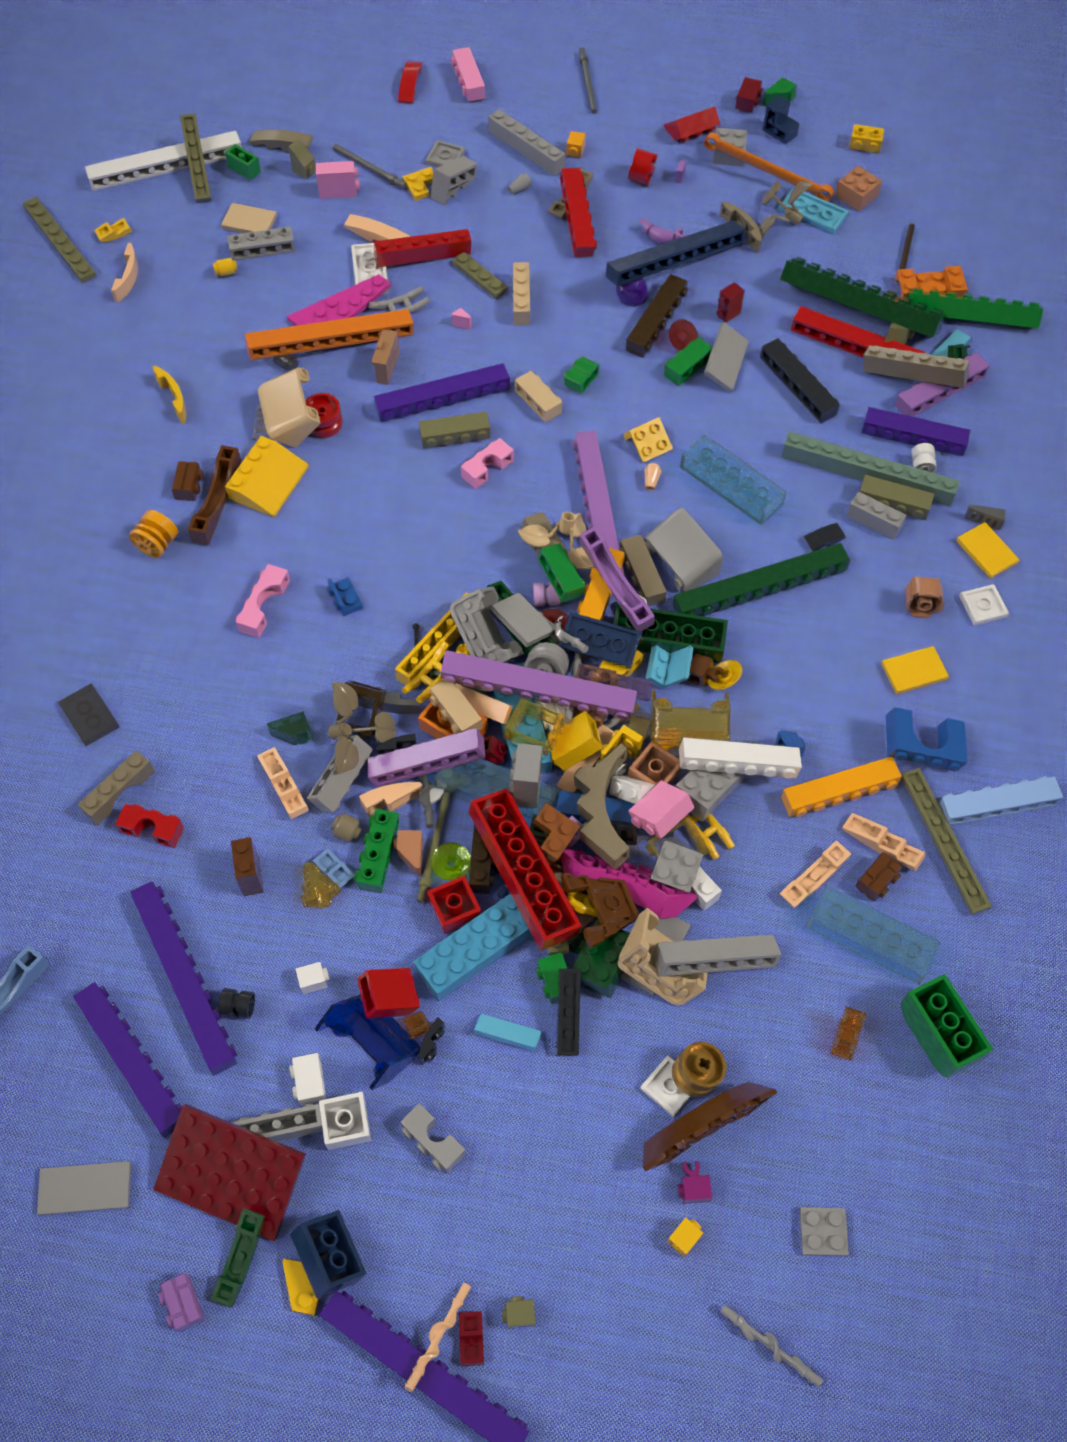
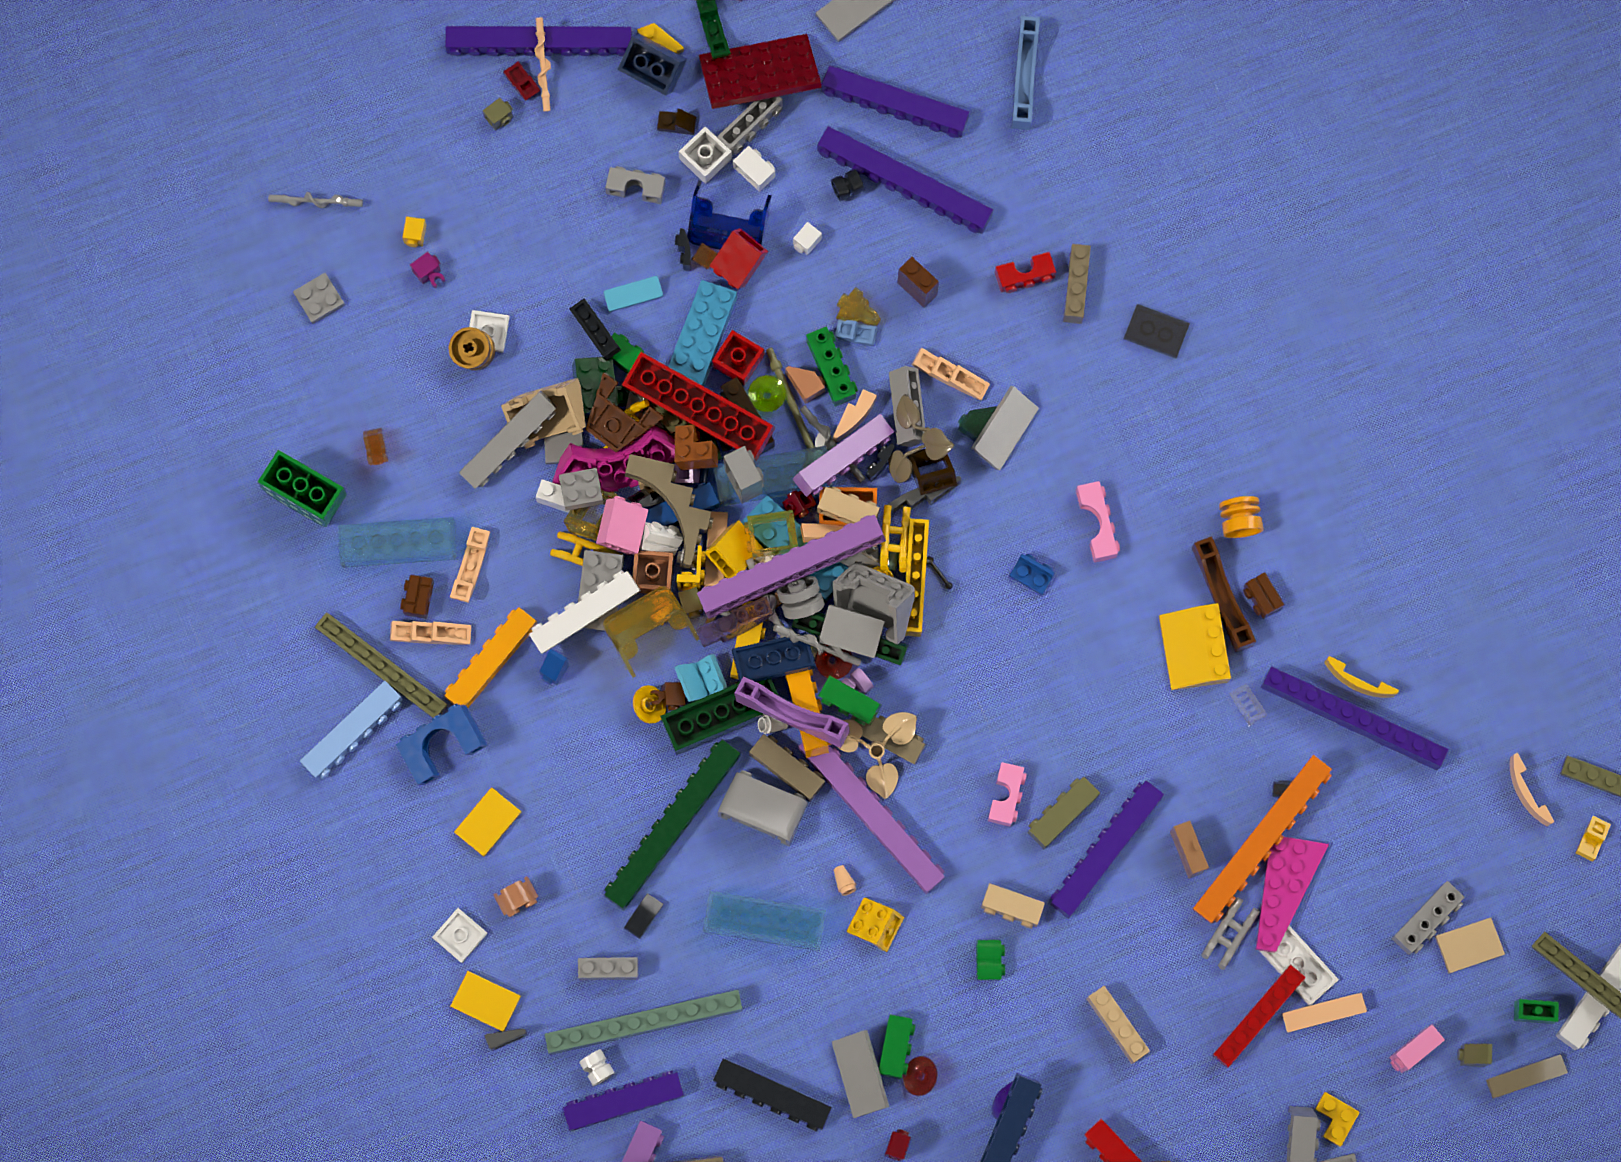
camera: 145 degrees right, 15 degrees up
(199, 374) = (1354, 718): none -> dark purple brick
(225, 267) = (1438, 863): yellow brick -> none
(274, 709) = (1005, 428): none -> light grey tile
(285, 408) = (1233, 720): tan windscreen -> none
(329, 414) = (1192, 733): red wheel -> none
(345, 827) = (870, 367): dark tan head -> none
(347, 1182) = (679, 122): none -> dark brown slope
(391, 178) = (1369, 1103): dark grey bar -> none
(461, 319) = (1154, 953): bright pink slope -> none
(479, 275) = (1180, 1028): olive plate -> none
(656, 316) = (964, 1088): dark brown brick -> none
(703, 1122) = (443, 311): reddish brown brick -> none
(899, 497) = (601, 1004): olive brick -> none

